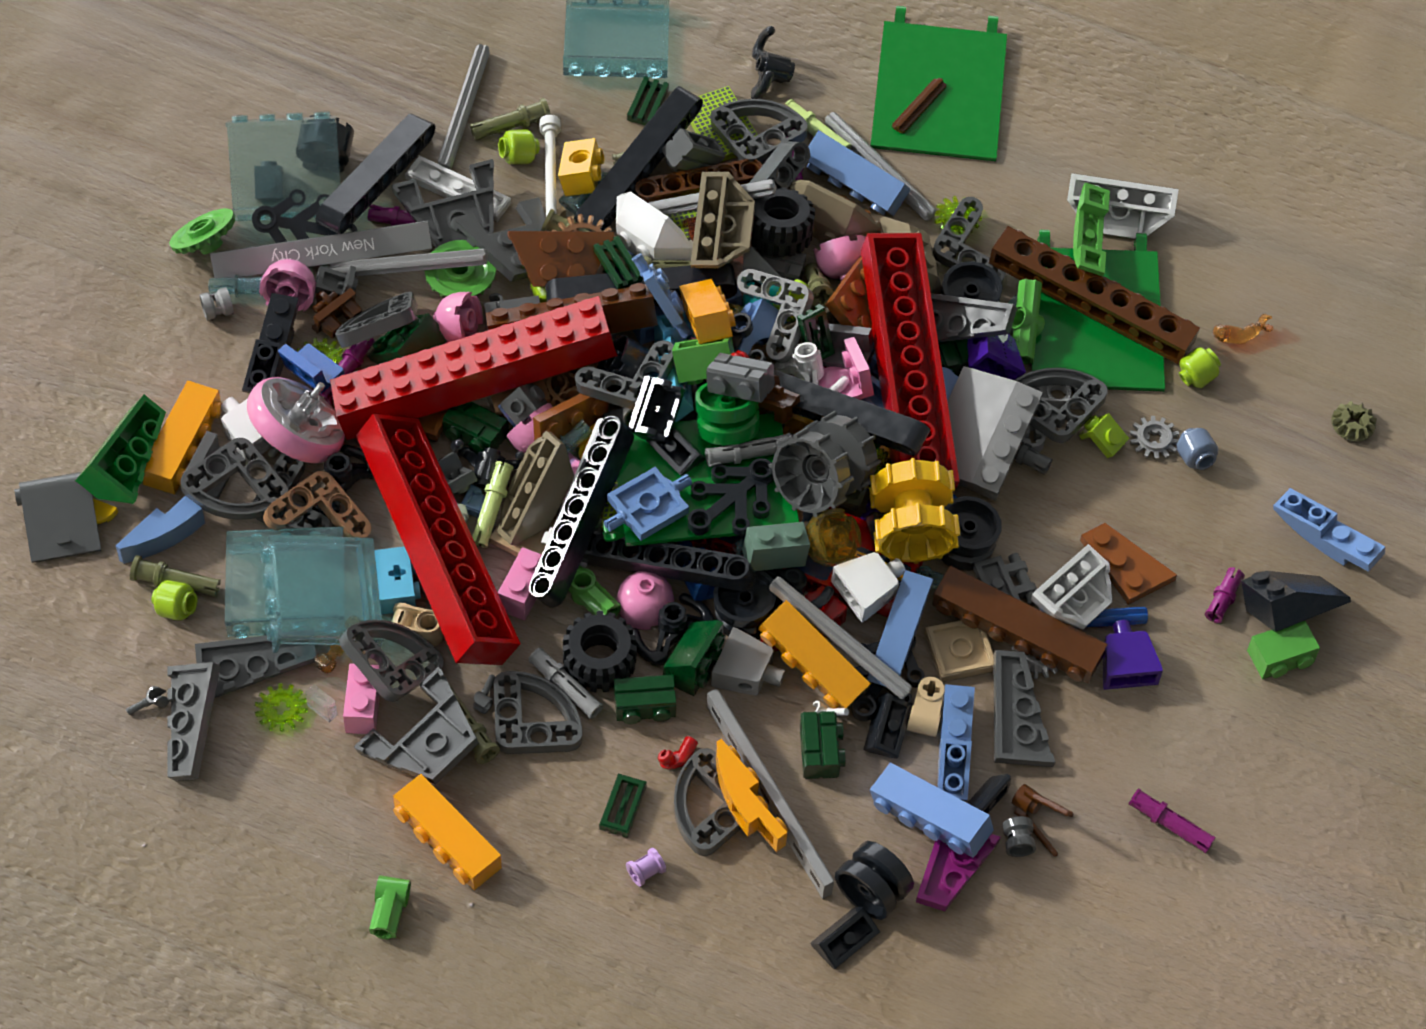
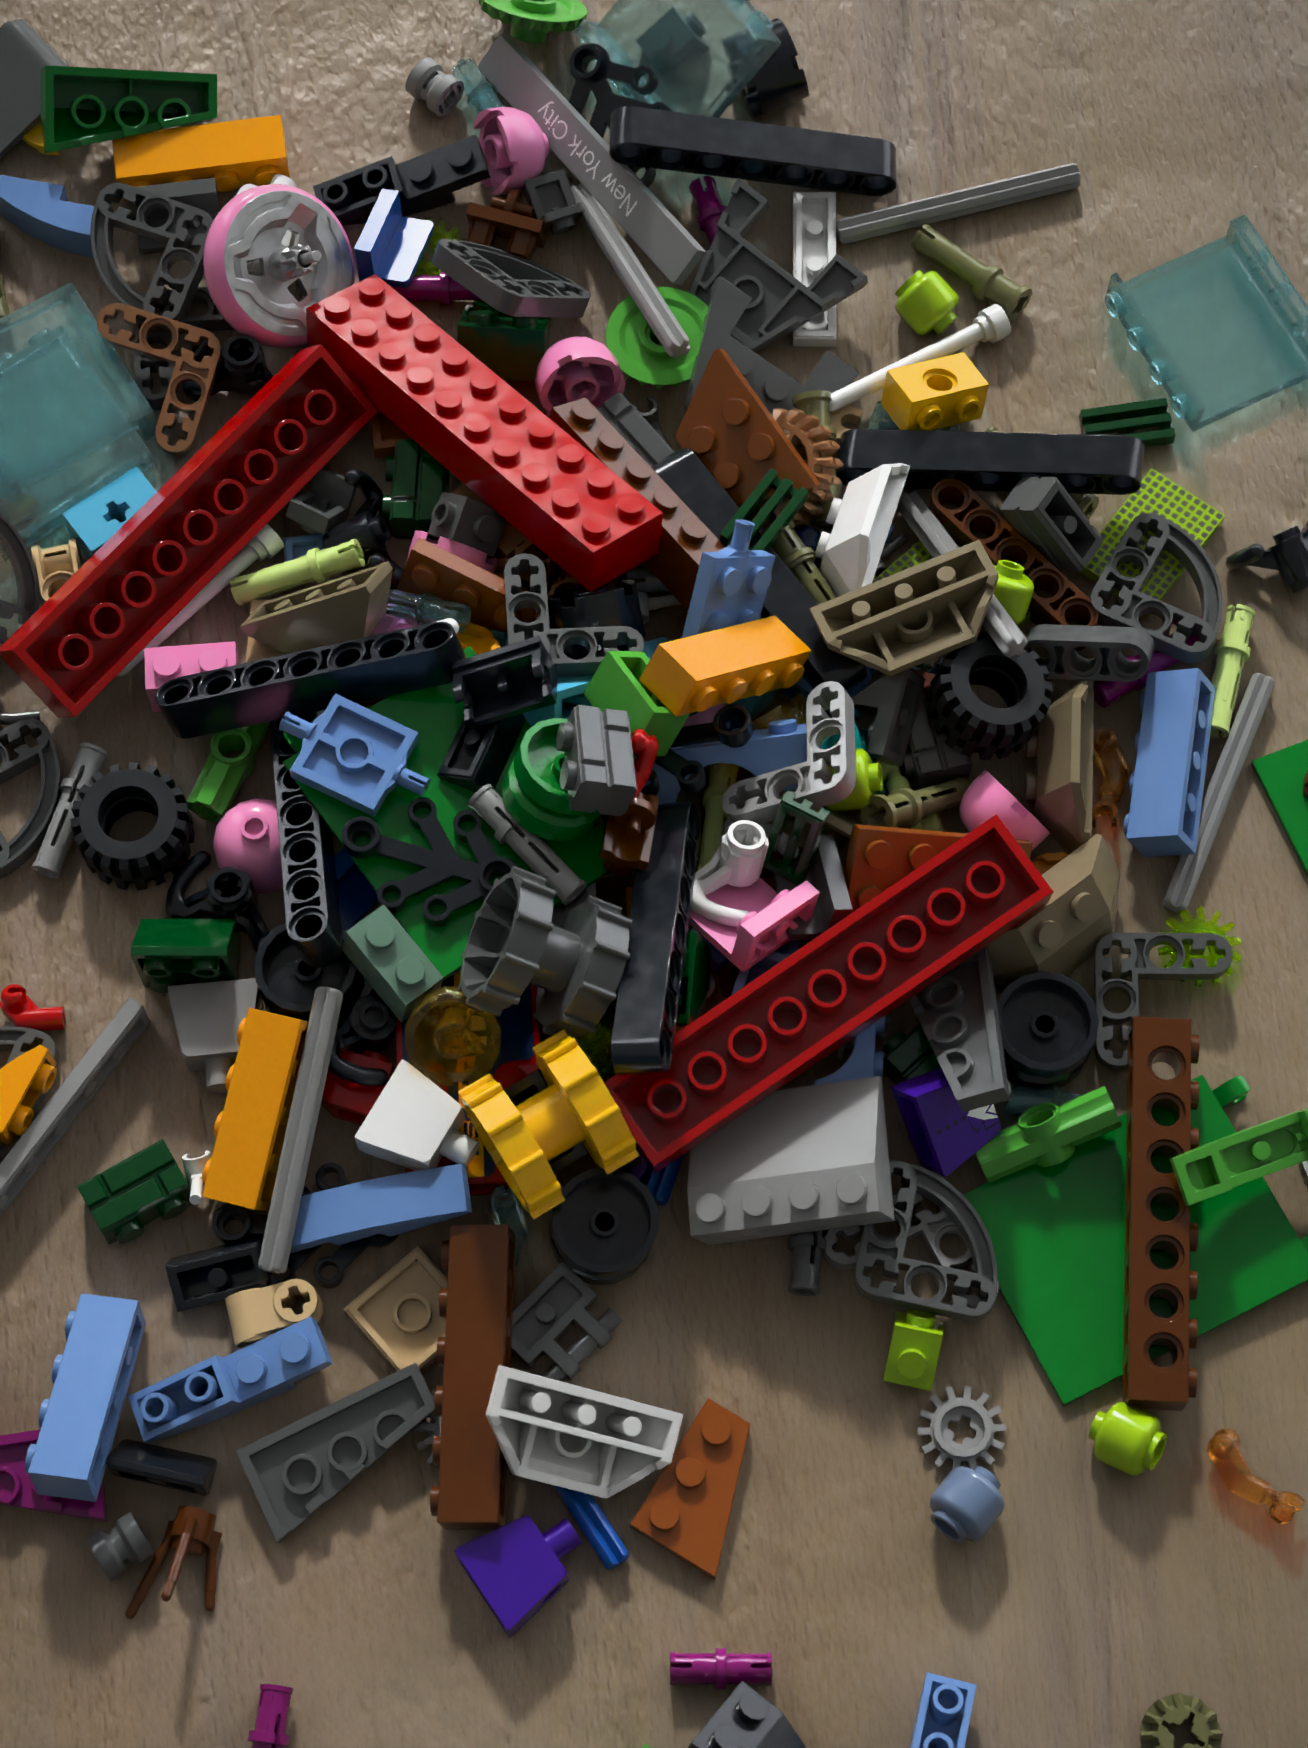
camera: 65 degrees right, 10 degrees up
(644, 698) = (92, 920): dark green brick -> none

